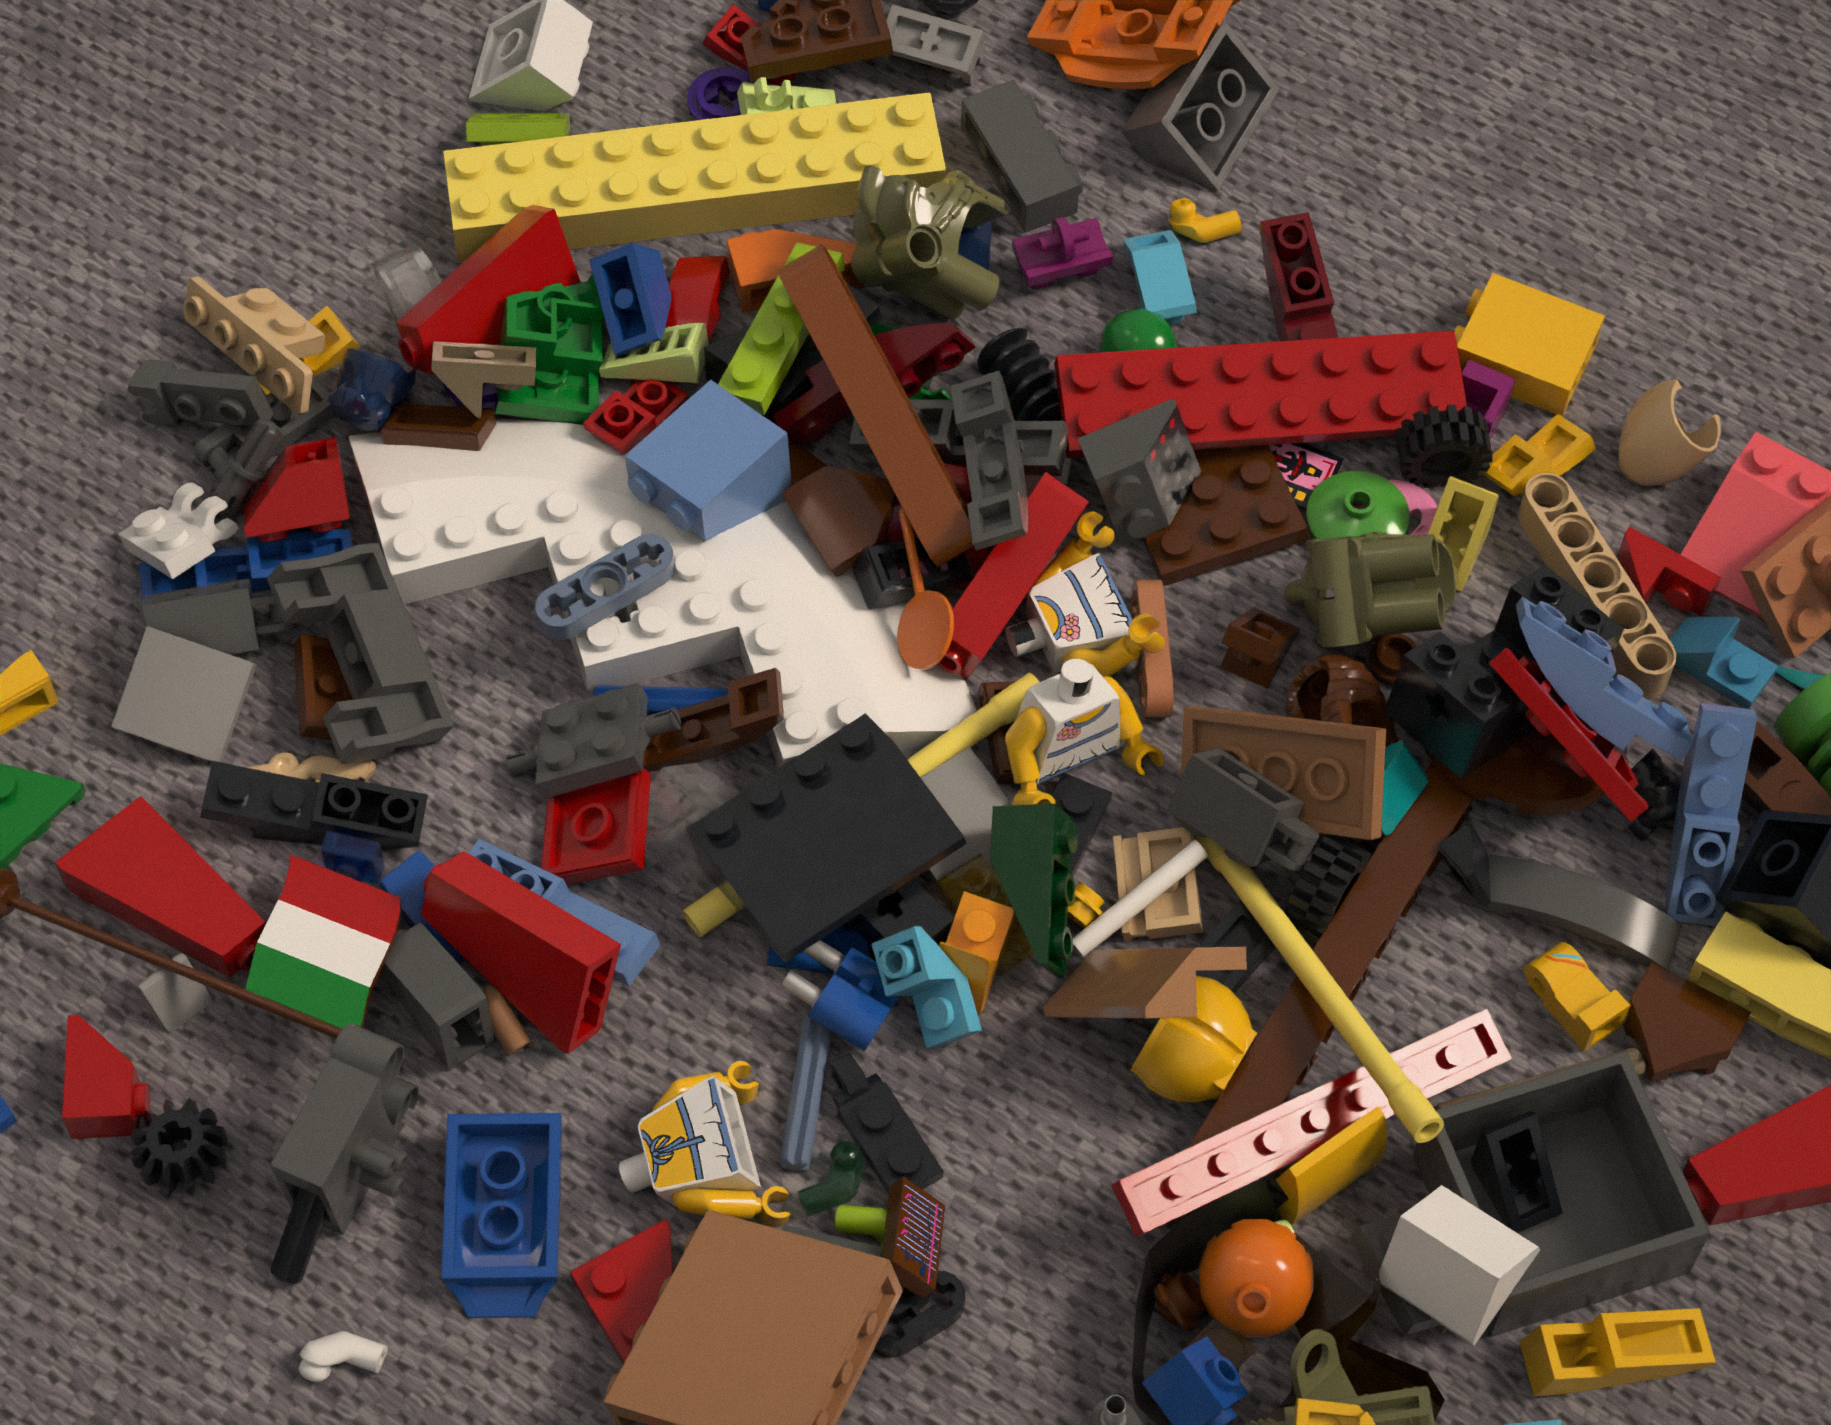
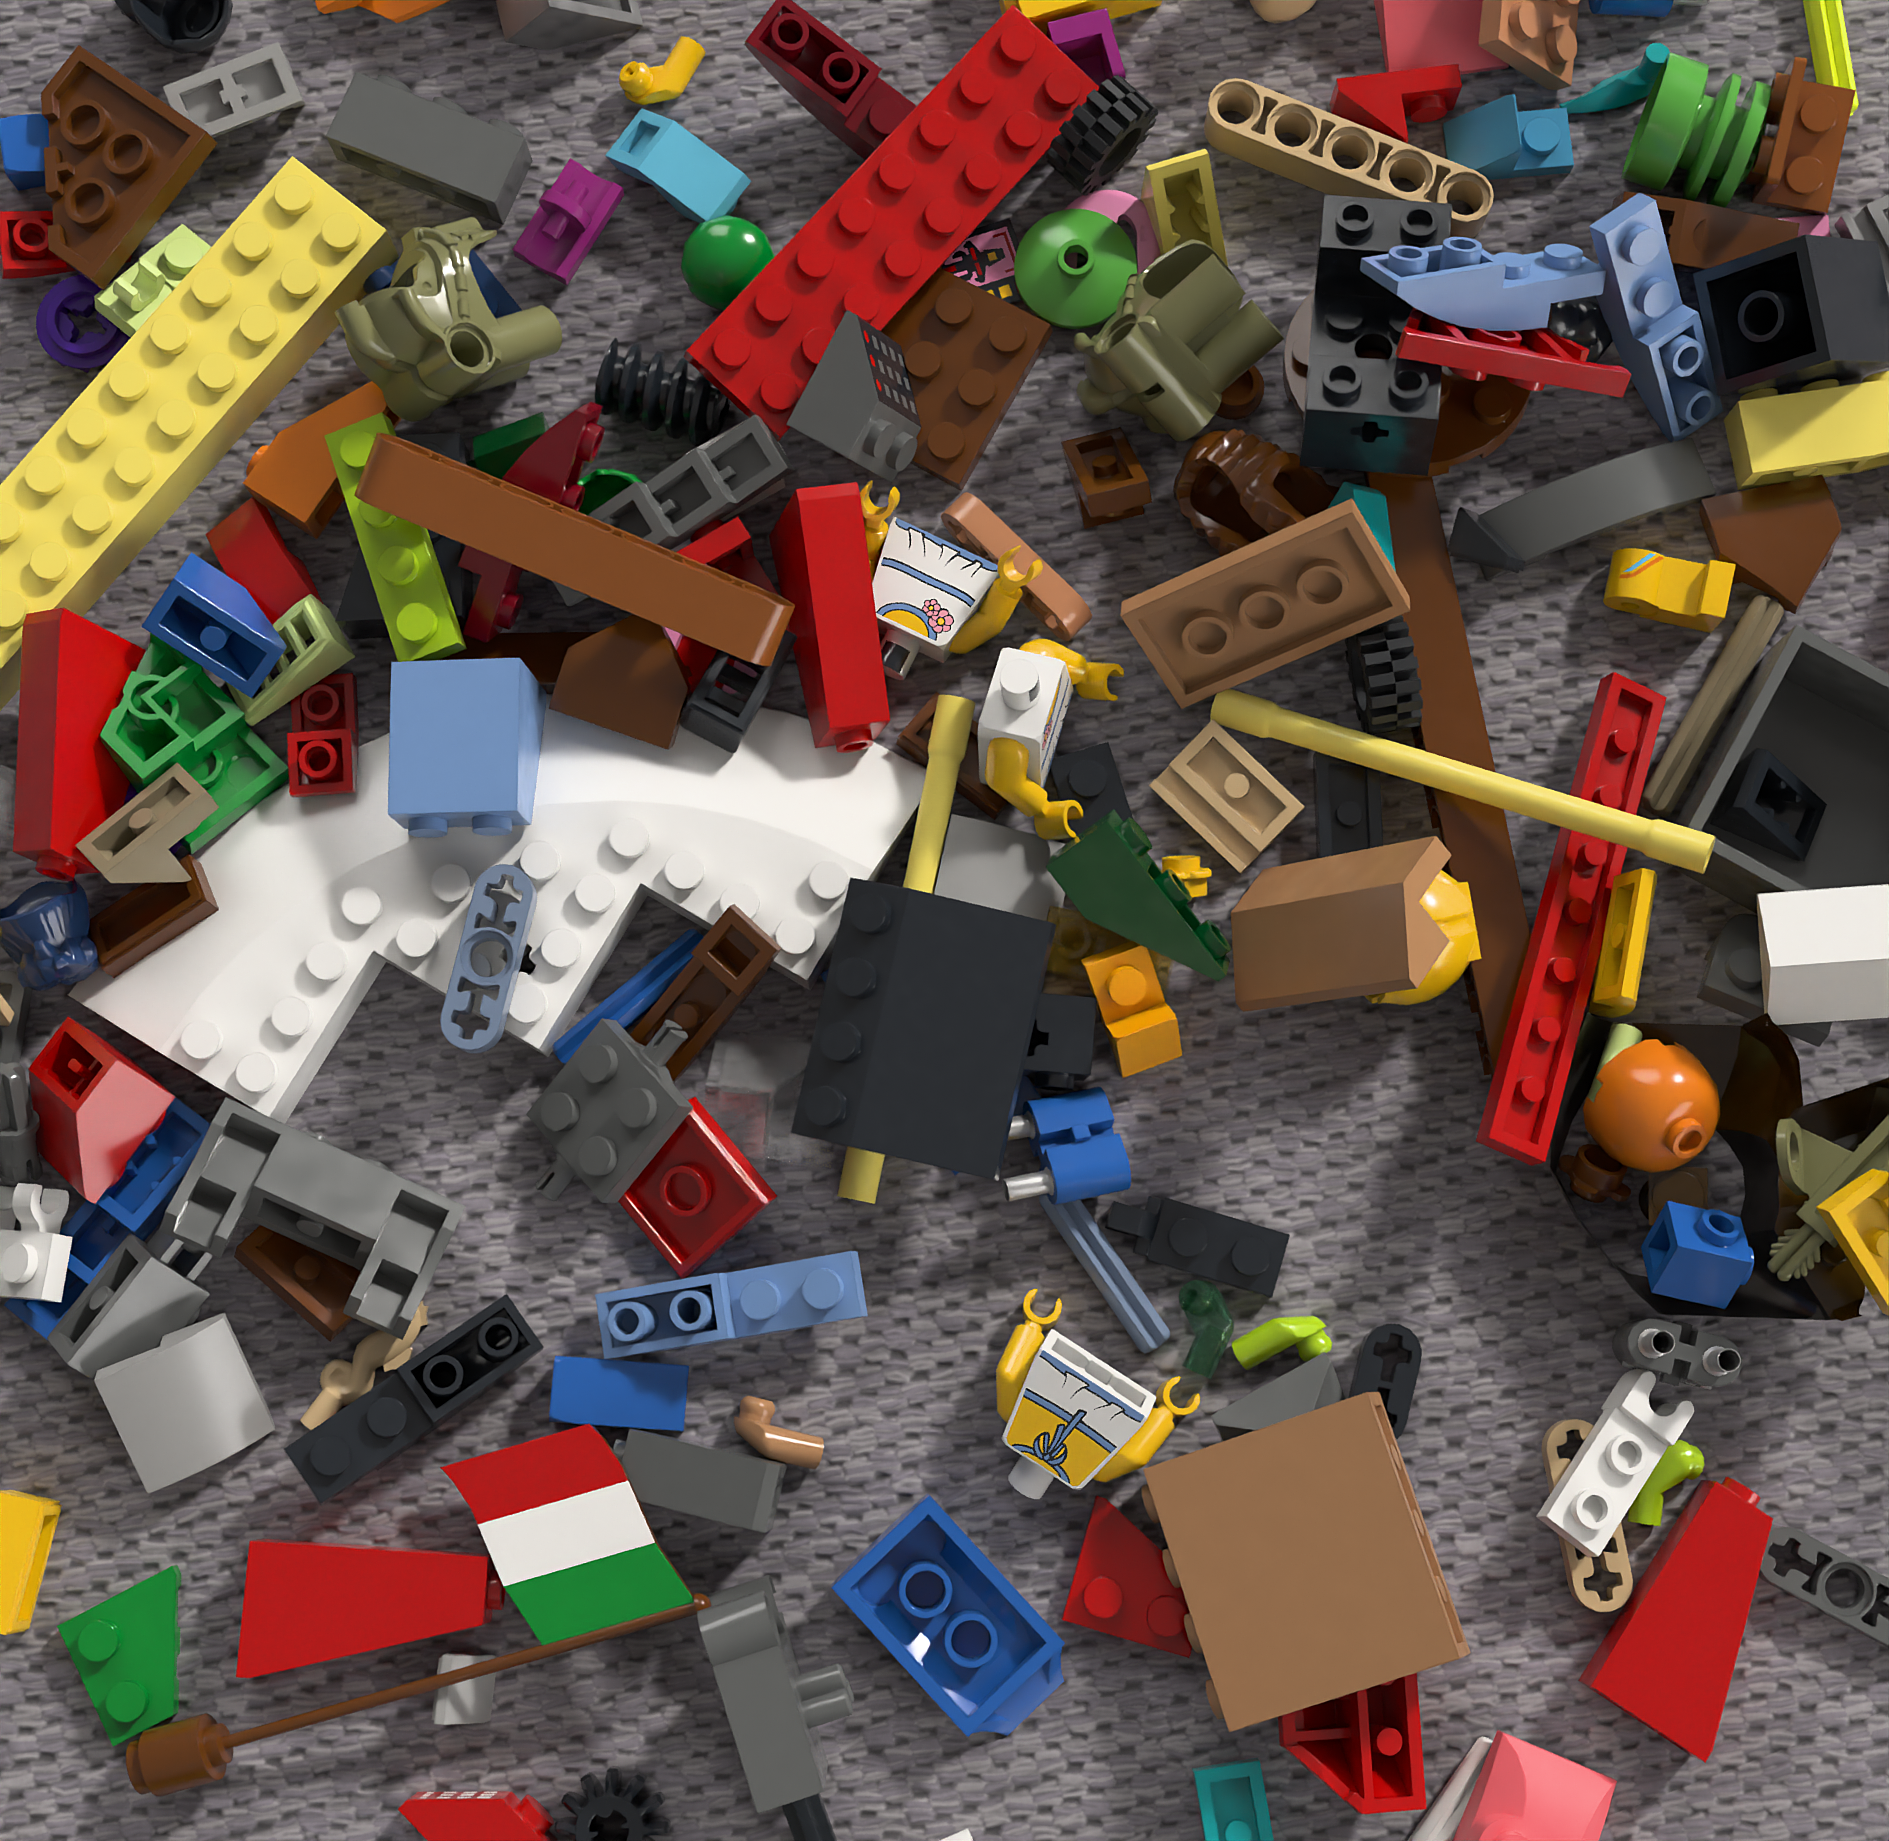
camera: 40 degrees left, 20 degrees up
(353, 857) = (499, 1418): clear blue plate -> none
(525, 947) = (742, 1371): red slope -> none
(913, 1236) = (1329, 1327): reddish brown tile -> none
(928, 617) = (805, 727): orange piece -> none
(941, 993) = (1134, 1077): medium azure slope -> none
(992, 460) = (739, 523): dark grey slope -> none
(1138, 898) = (1231, 829): white bar -> none
(1242, 812) = (1266, 674): dark grey brick -> none
(1551, 450) = (1185, 66): yellow slope -> none

